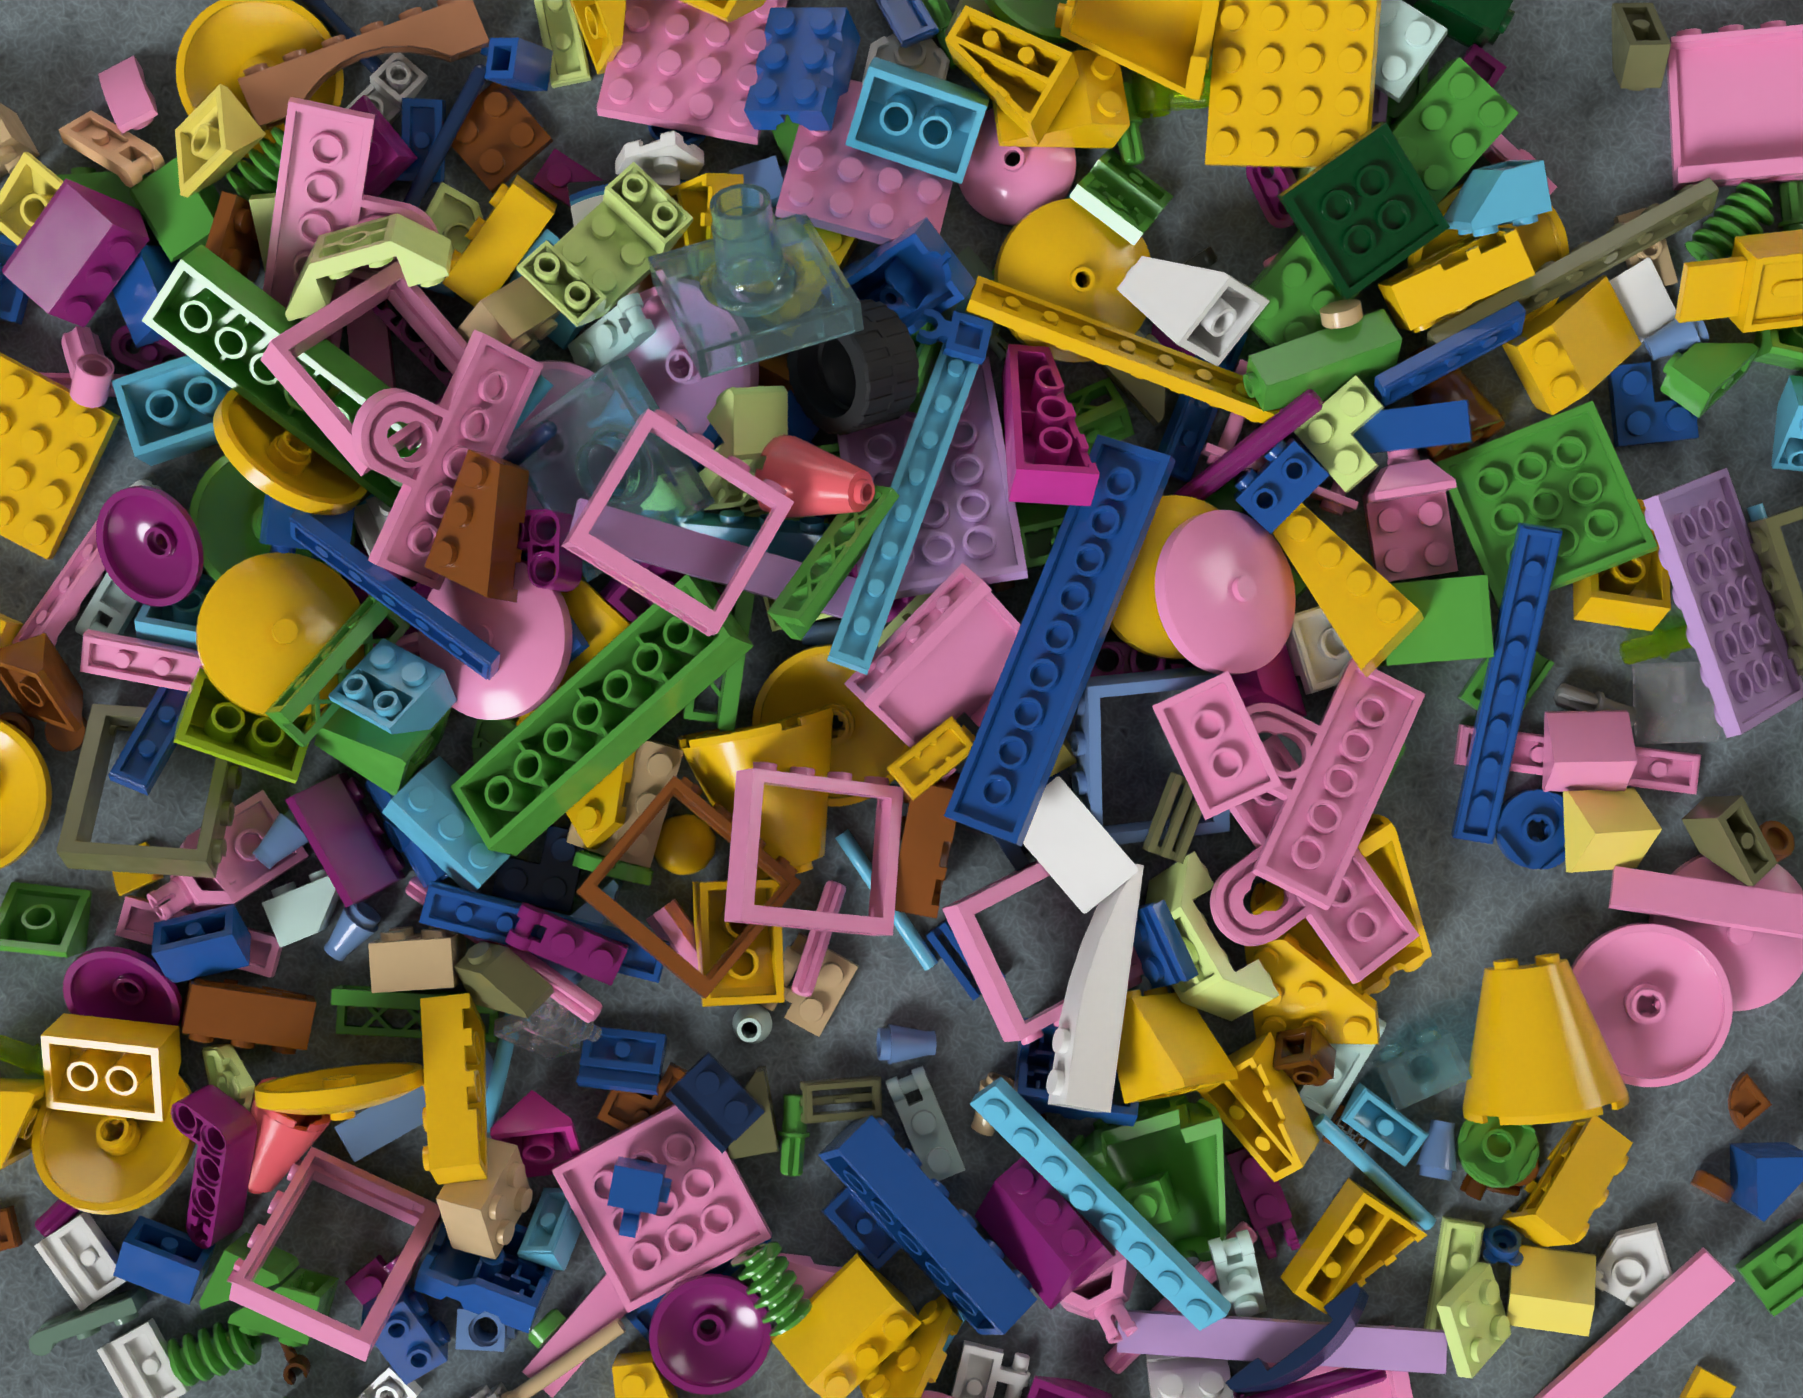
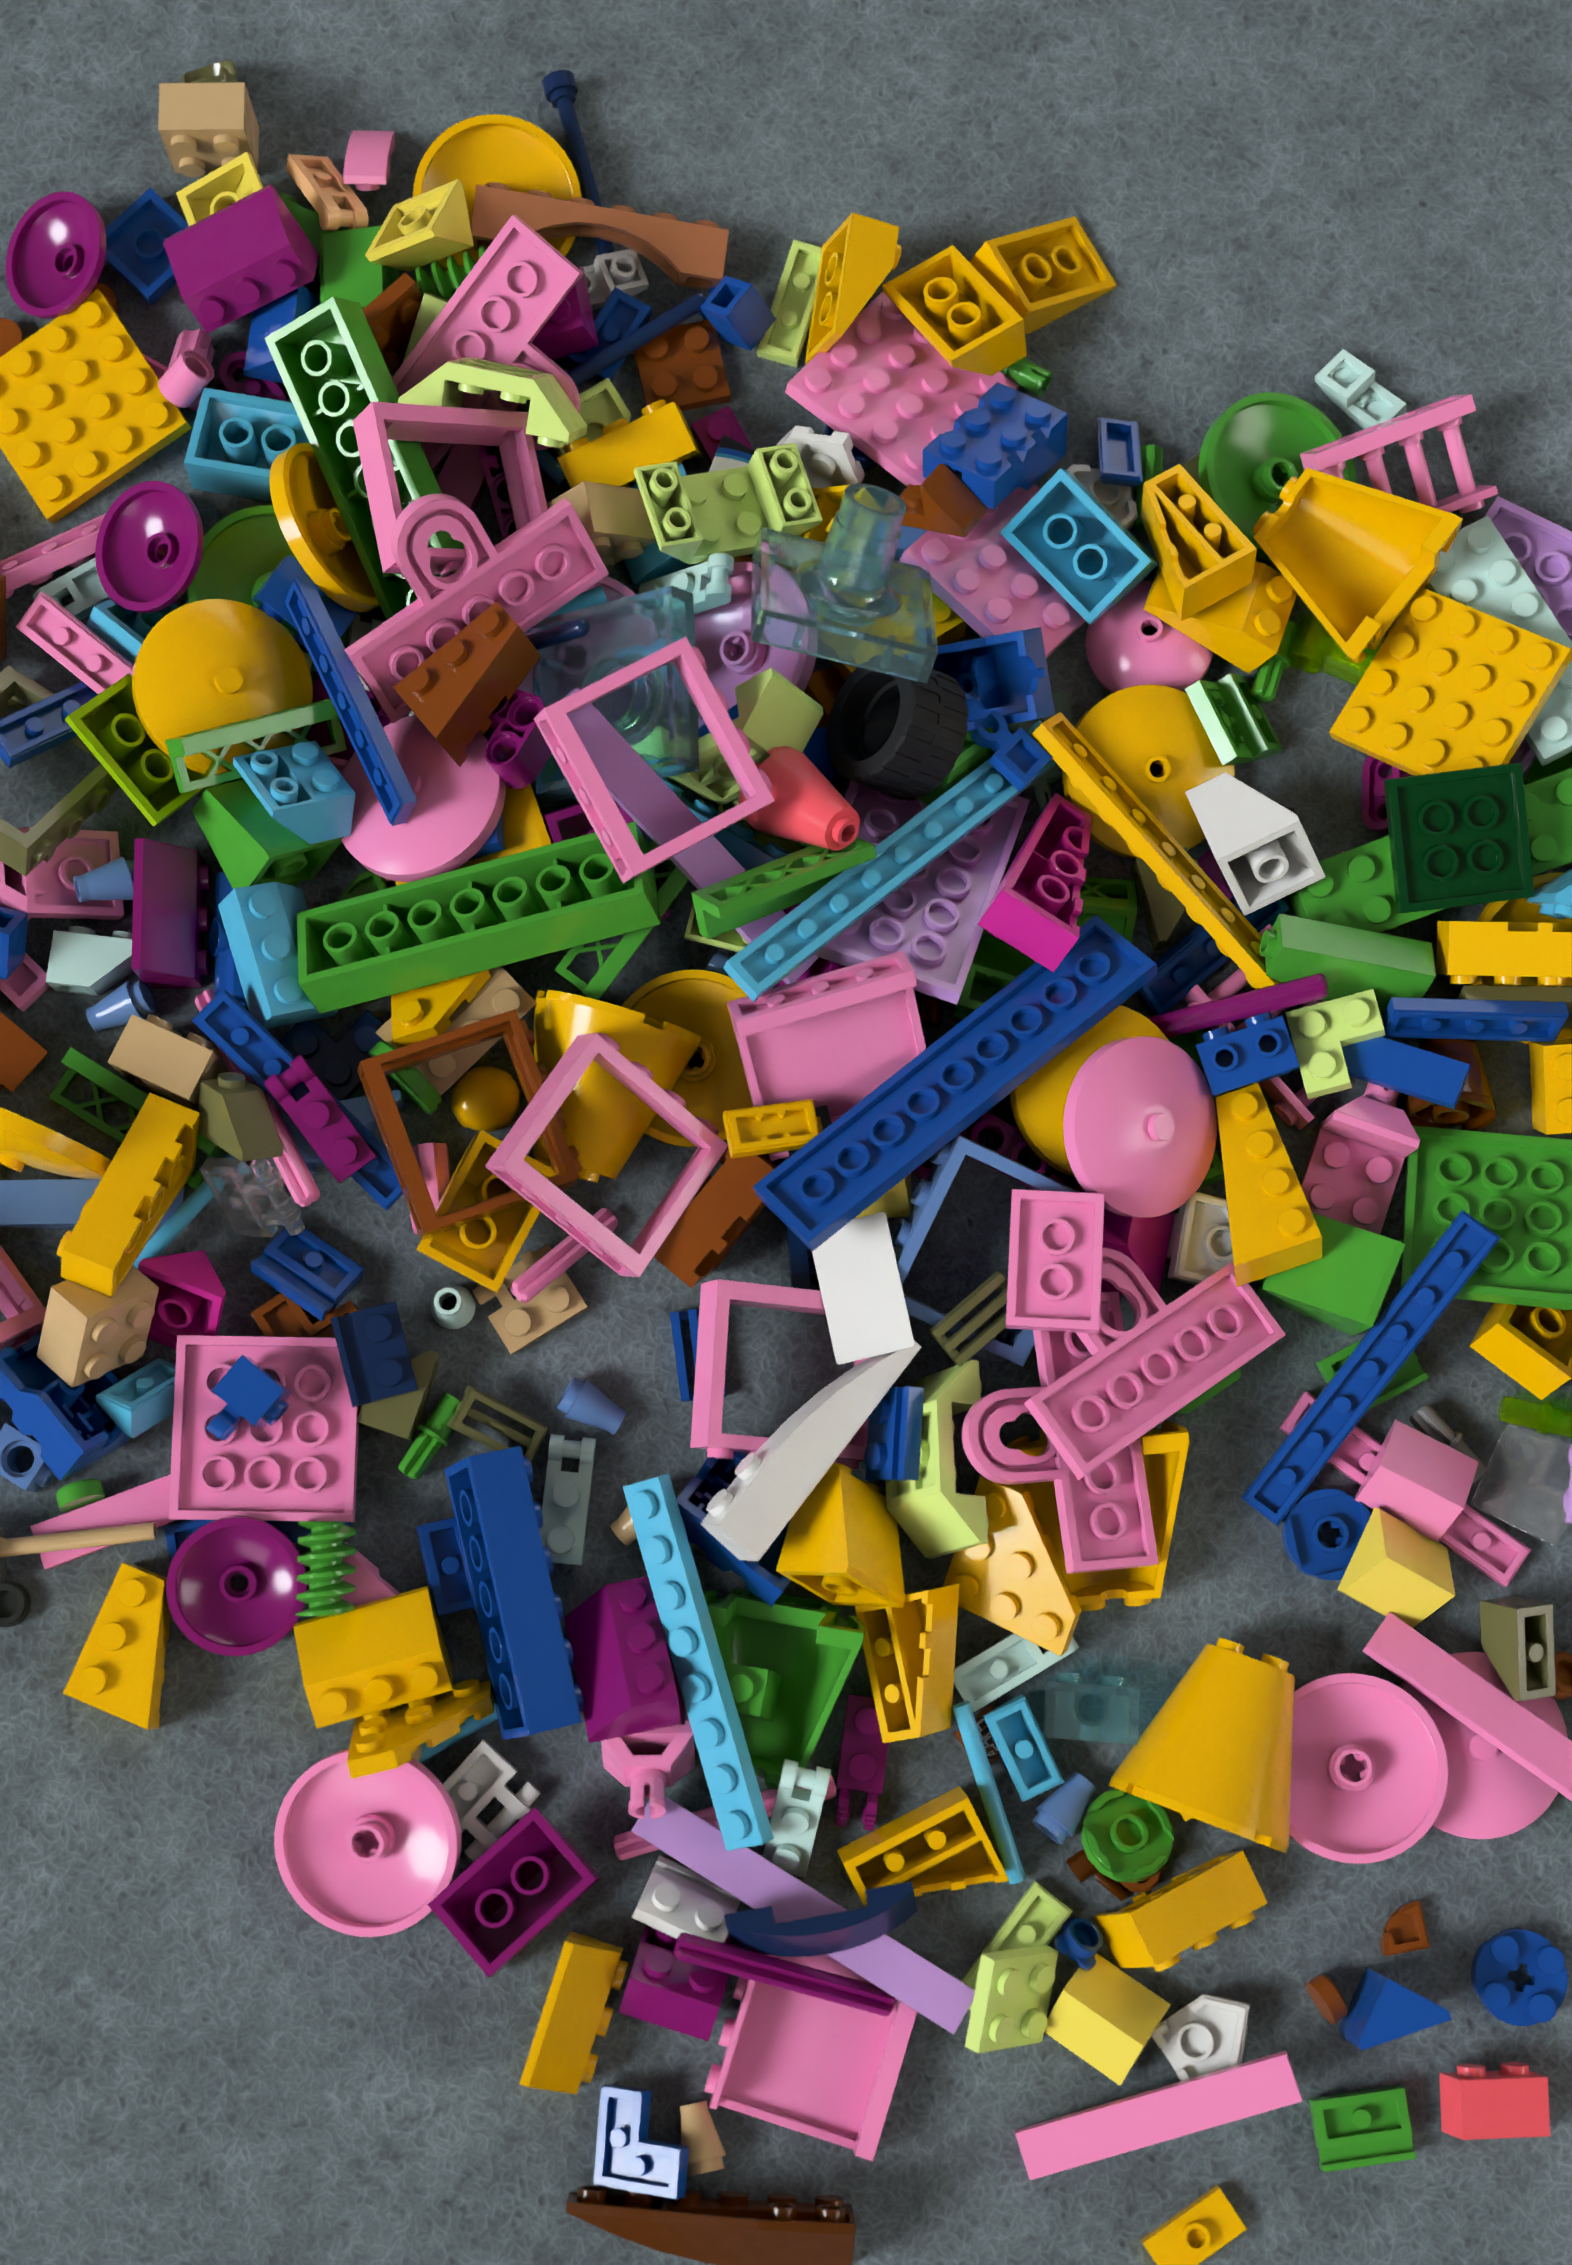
camera: 25 degrees right, 10 degrees down
(782, 151) = (942, 504): none -> dark orange slope
(901, 920) = (652, 1272): medium azure bar -> none
(1306, 1067) = (983, 1638): reddish brown brick -> none
(1341, 313) = (1388, 924): tan tile -> none

